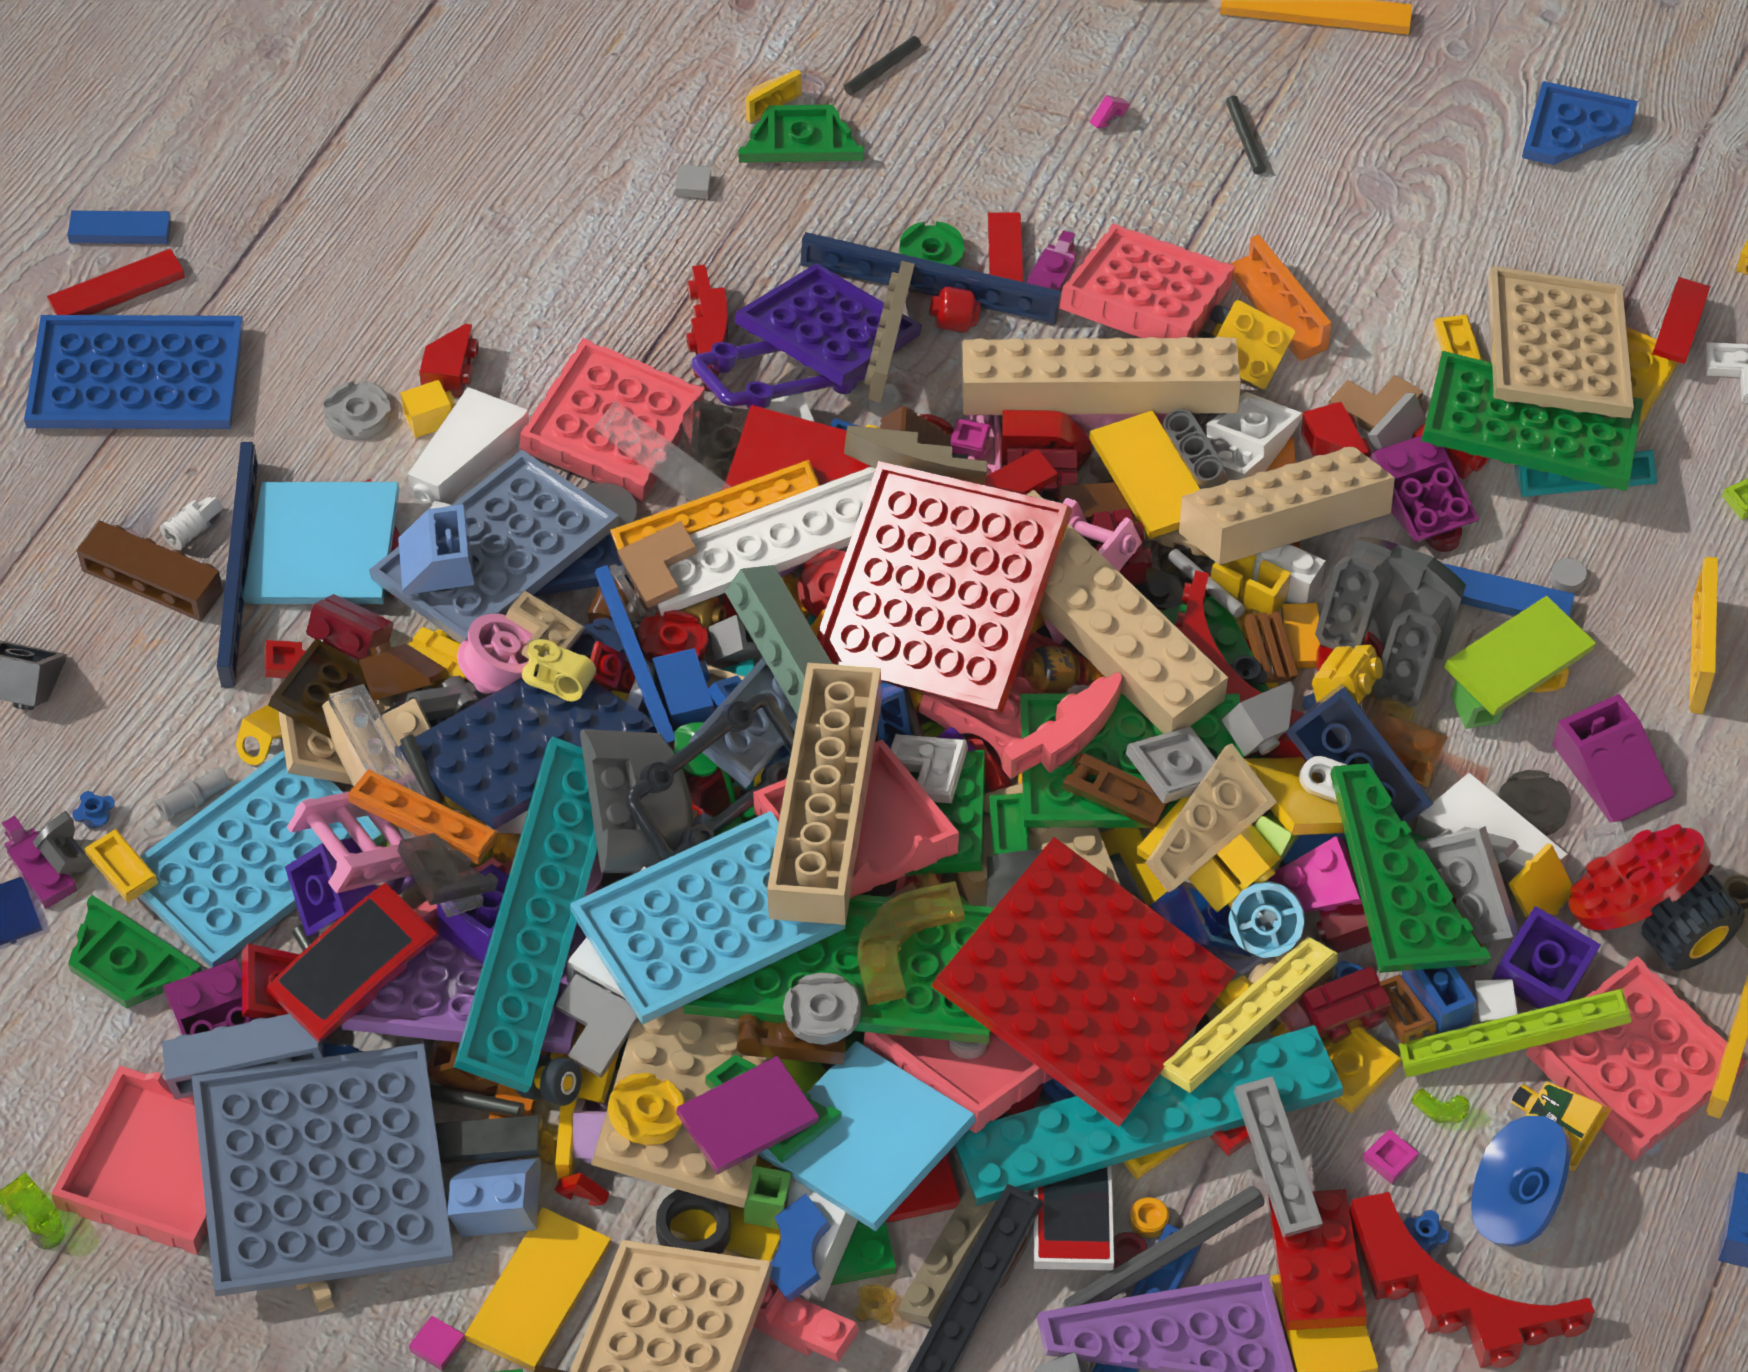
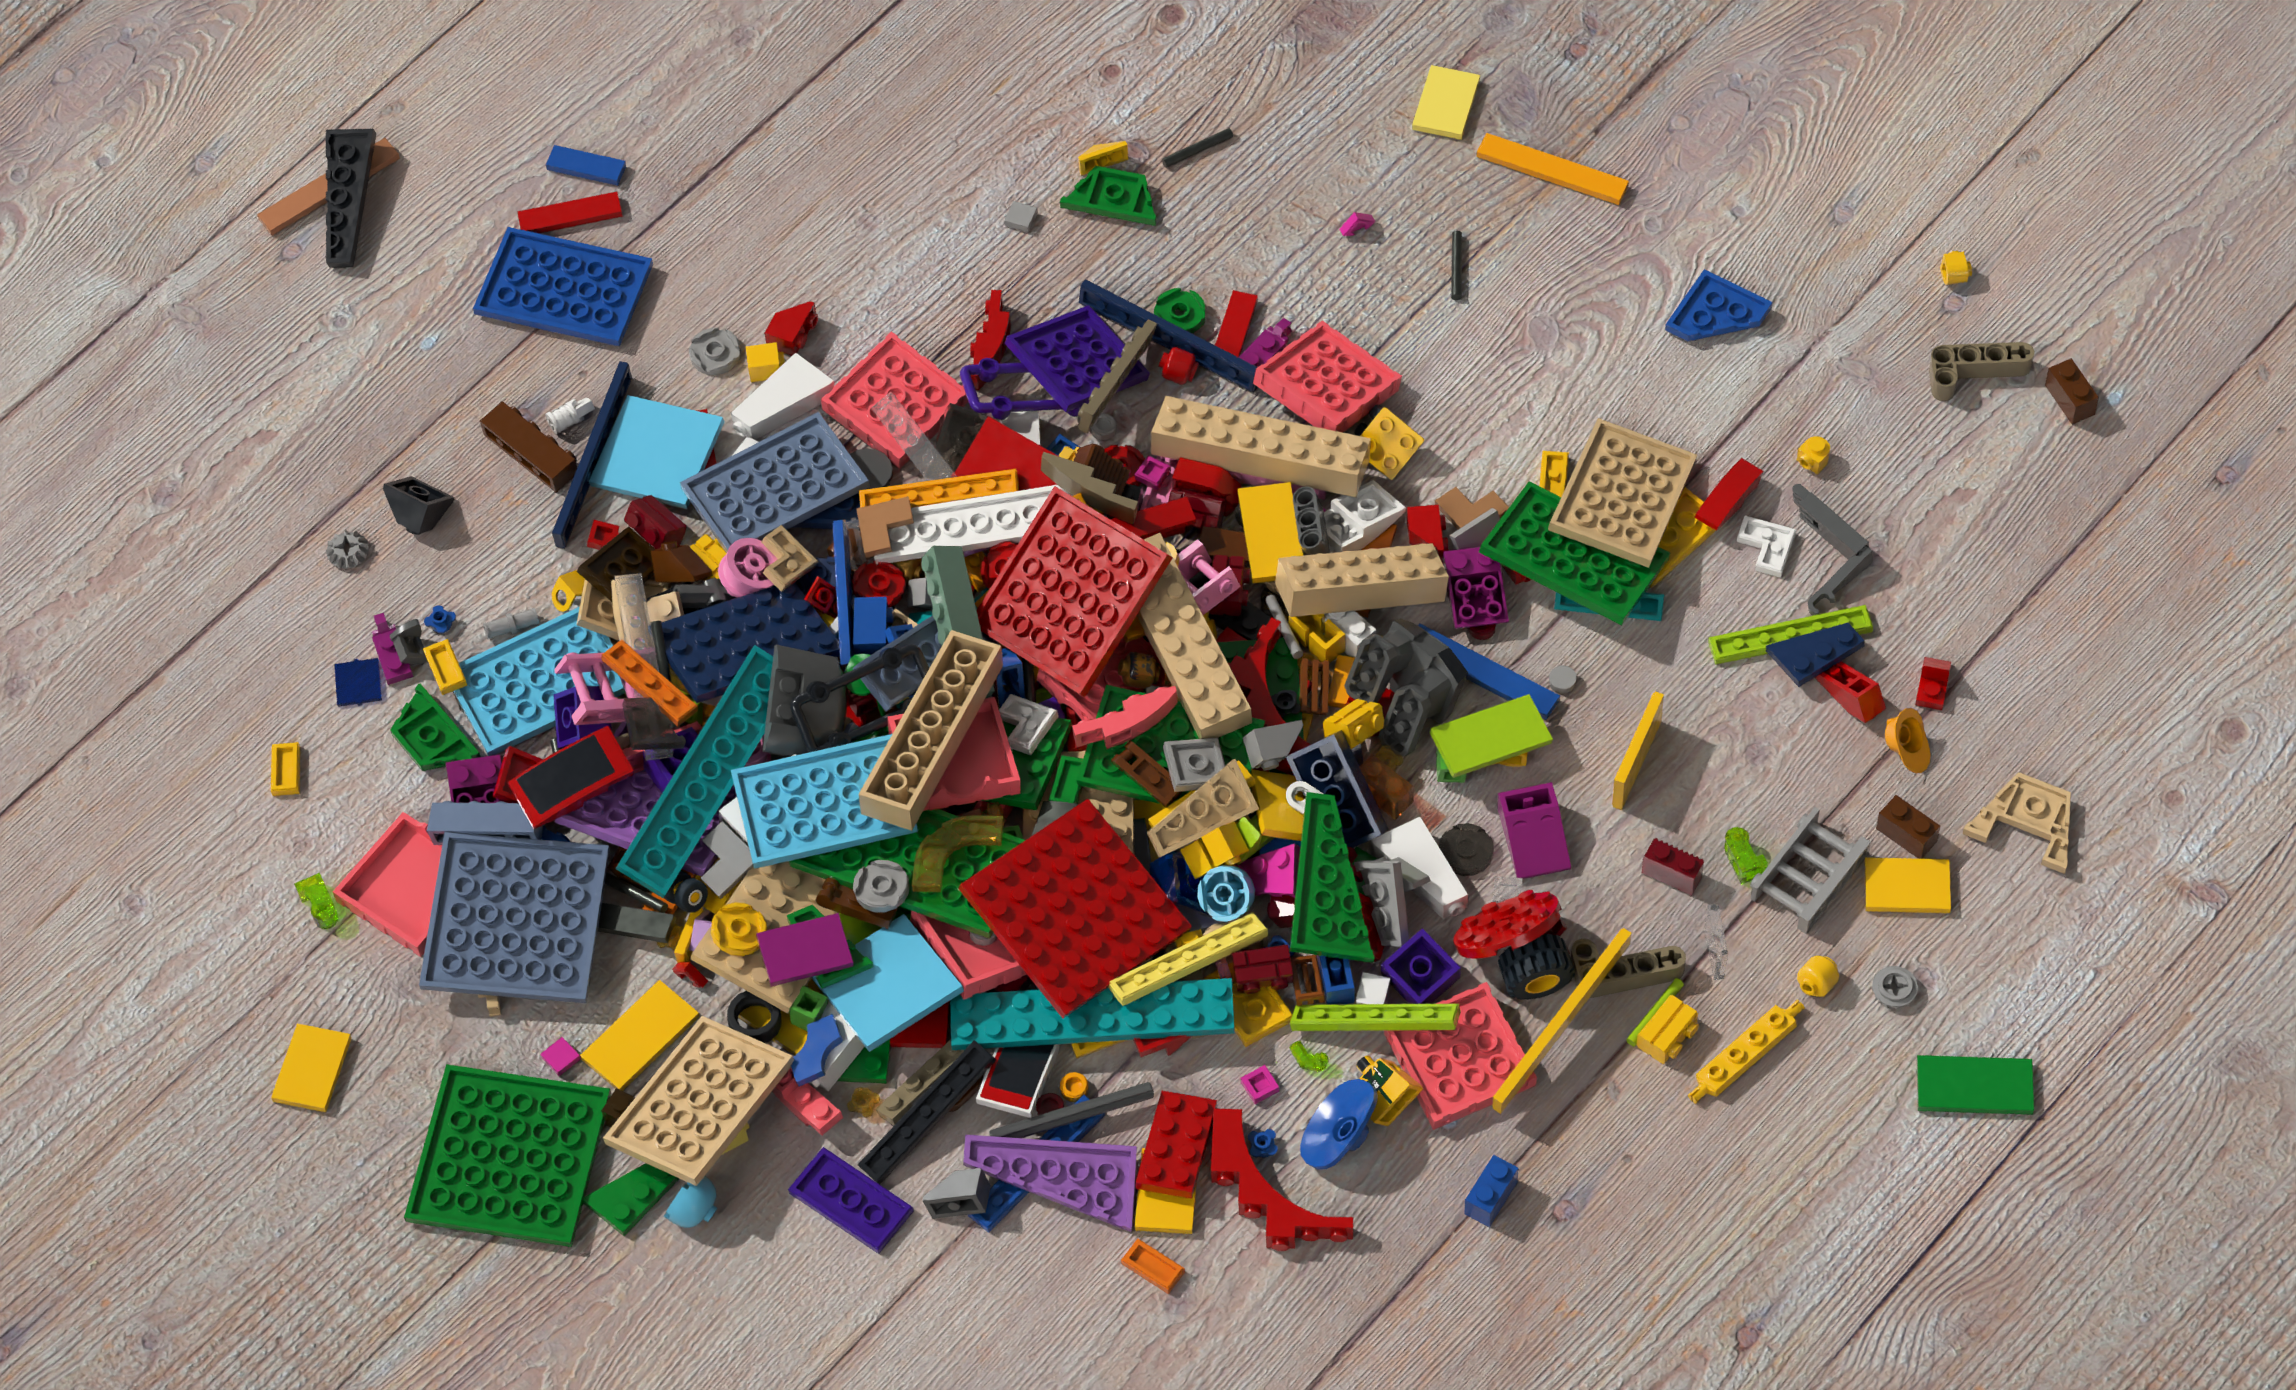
camera: 20 degrees right, 5 degrees up
(436, 551) = (728, 481): medium blue slope -> none
(495, 1197) = (628, 964): medium blue slope -> none
(559, 671) = (785, 595): light yellow piece -> none
(1278, 1157) = (1168, 1066): light grey plate -> none
(1282, 297) = (1428, 411): orange fence -> none
(1542, 883) = (1440, 913): yellow piece -> none

